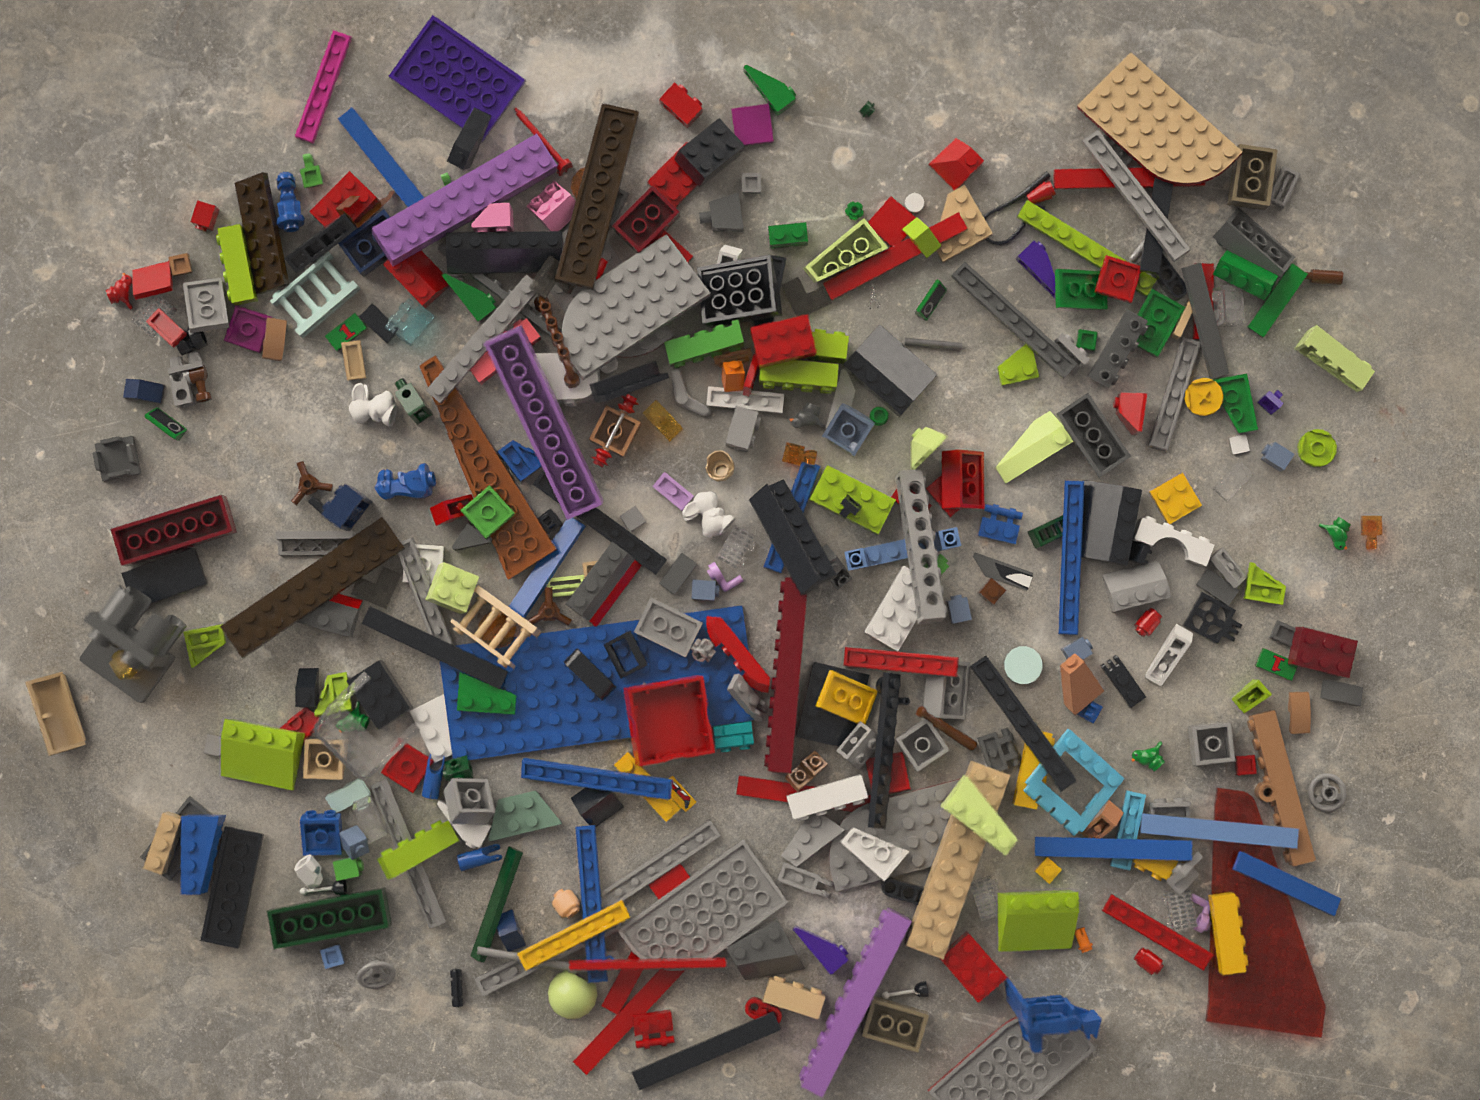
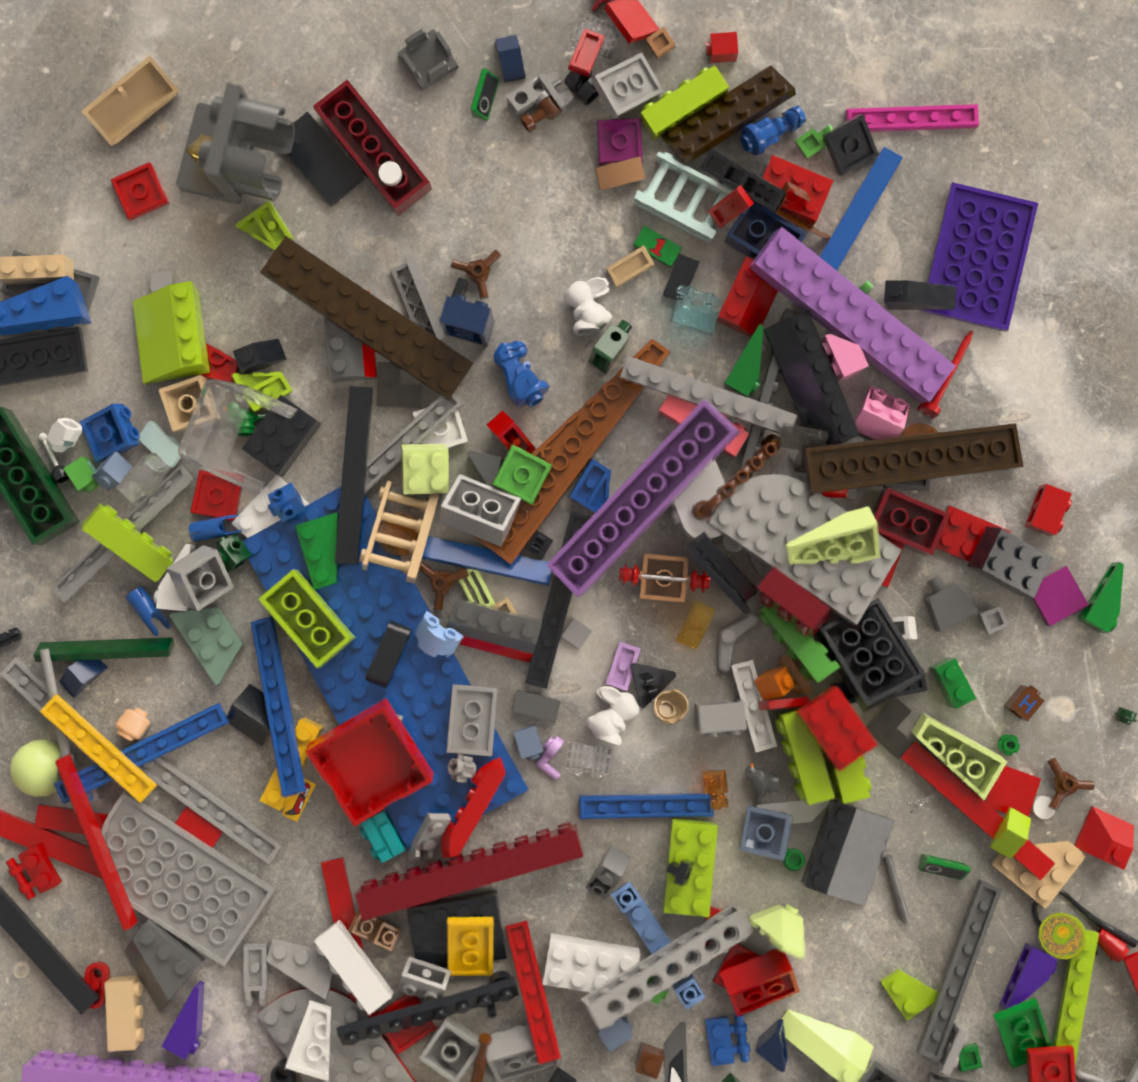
camera: 75 degrees right, 0 degrees up
(132, 735) = (139, 191): none -> red tile
(202, 523) = (390, 173): none -> white tile
(325, 145) = (850, 144): none -> black plate
(338, 261) = (730, 207): none -> red plate
(435, 710) = (286, 502): none -> blue brick
(502, 556) = (479, 510): none -> light grey slope
(535, 727) = (307, 618): none -> lime brick
(592, 631) = (436, 639): none -> light blue cylinder
(635, 650) = (433, 694): black tile -> none
(637, 278) = (847, 537): none -> yellowish green wedge
(673, 336) = (792, 602): none -> dark red brick
(694, 475) = (649, 682): none -> black piece
(792, 537) = (623, 820): black slope -> none
(825, 185) = (1024, 702): none -> reddish brown brick
(902, 178) = (1065, 784): none -> reddish brown piece
(1017, 228) = (1062, 935): none -> tile
(1017, 488) = (773, 1046): none -> dark blue slope

